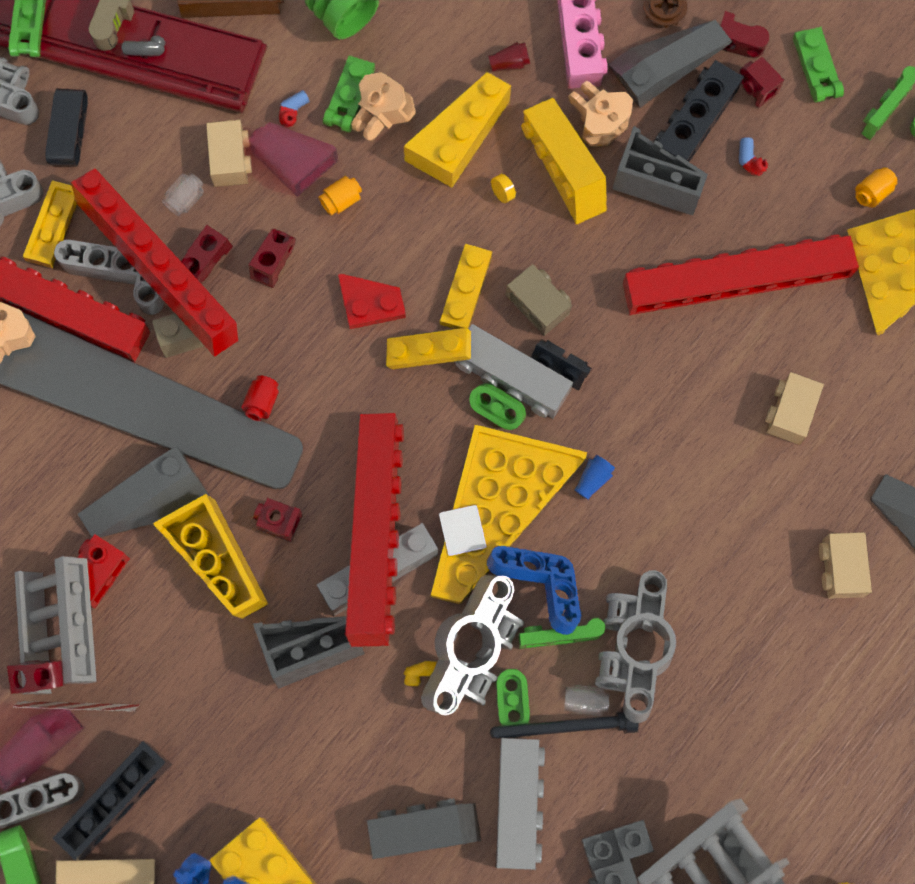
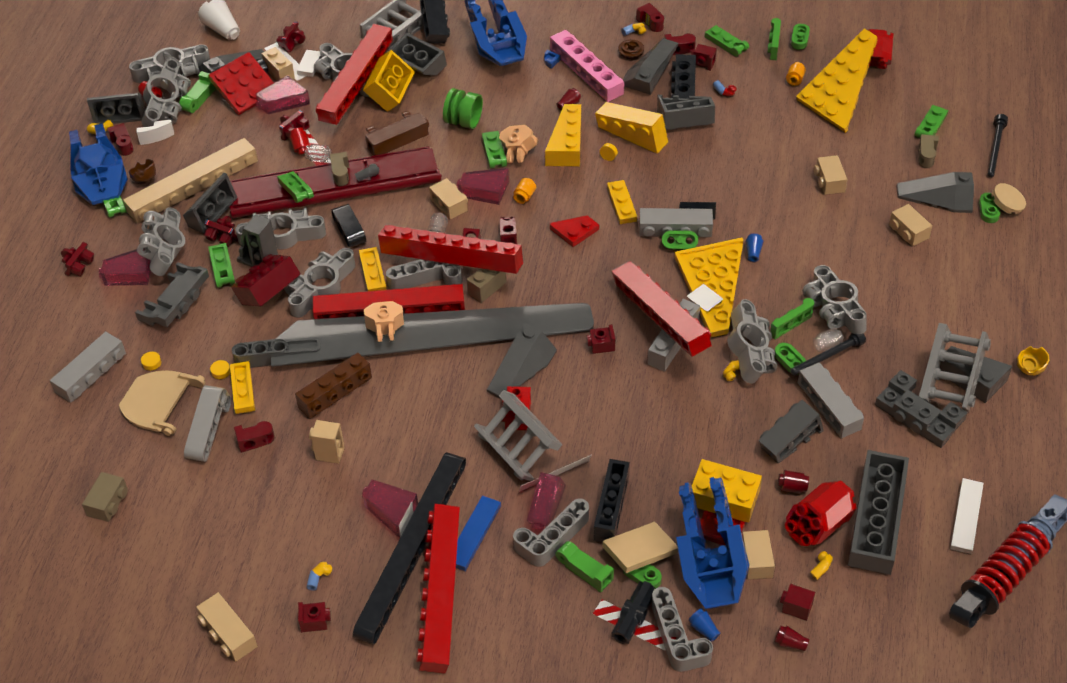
camera: 25 degrees left, 25 degrees down
(38, 676) = (528, 455): dark red leg -> none
(212, 552) = (580, 367): yellow wedge -> none
(260, 398) = (550, 292): red brick -> none
(290, 107) = (467, 165): arm -> none
(304, 647) = (663, 384): dark grey wedge -> none
(429, 348) = (625, 229): yellow plate -> none
(539, 299) = (664, 188): dark tan brick -> none
(553, 571) = (769, 294): blue beam -> none
(603, 115) = (634, 97): light nougat hinge -> none
(739, 274) = (757, 135): red brick -> none

